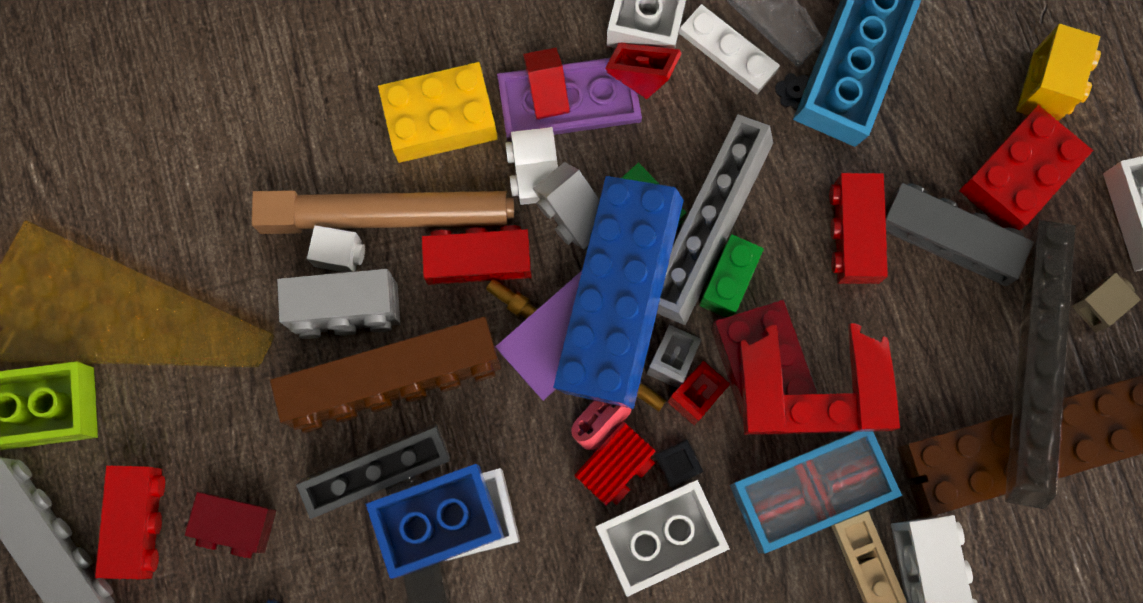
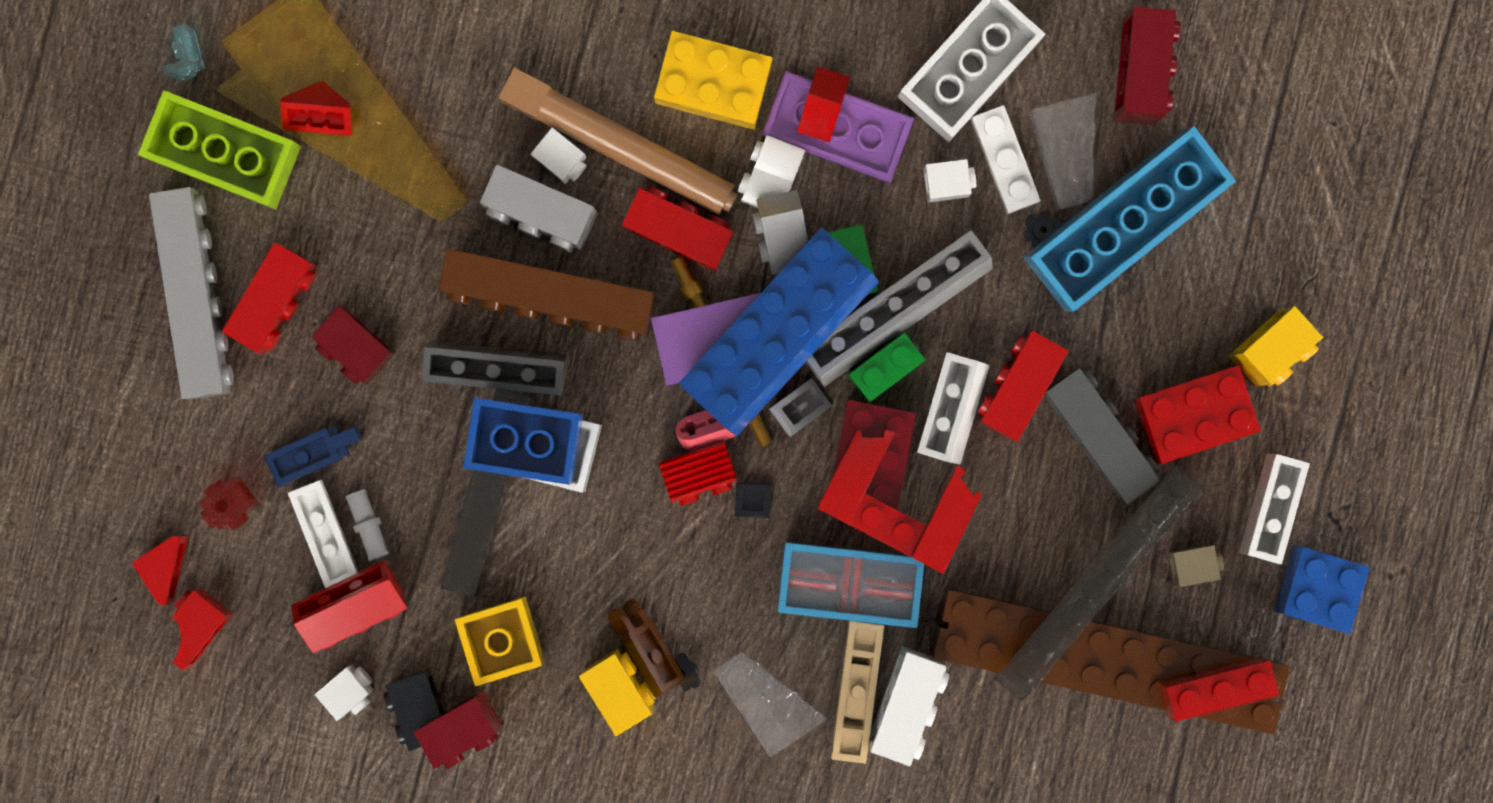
camera: 25 degrees right, 10 degrees up
(89, 326) = (316, 111): none -> red slope
(642, 66) = (915, 138): red slope -> none
(662, 538) = (701, 553): white brick -> none
(691, 87) = (949, 180): none -> white brick
(698, 393) = (803, 450): red slope -> none
(812, 279) = (953, 408): none -> white brick

